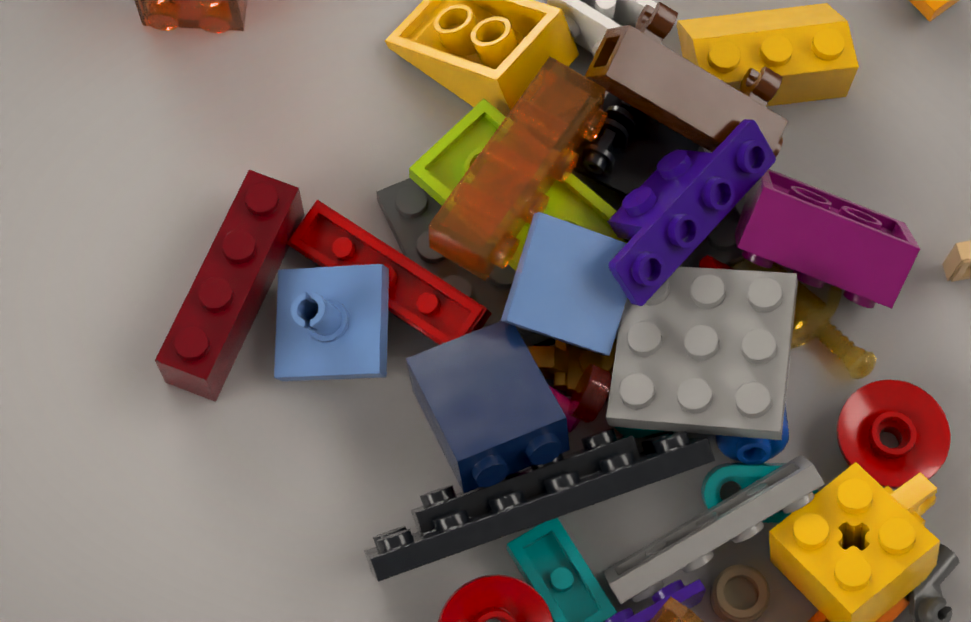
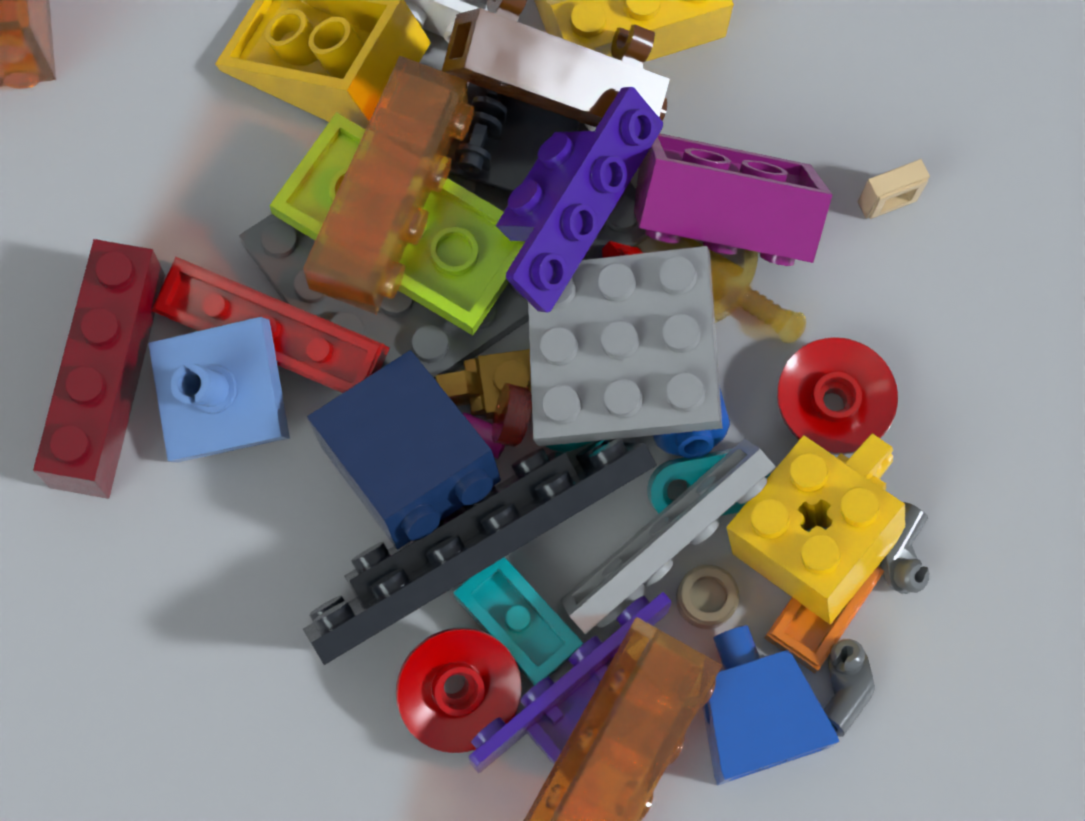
camera: 15 degrees left, 5 degrees up
(566, 285) = (464, 304): medium blue tile -> none

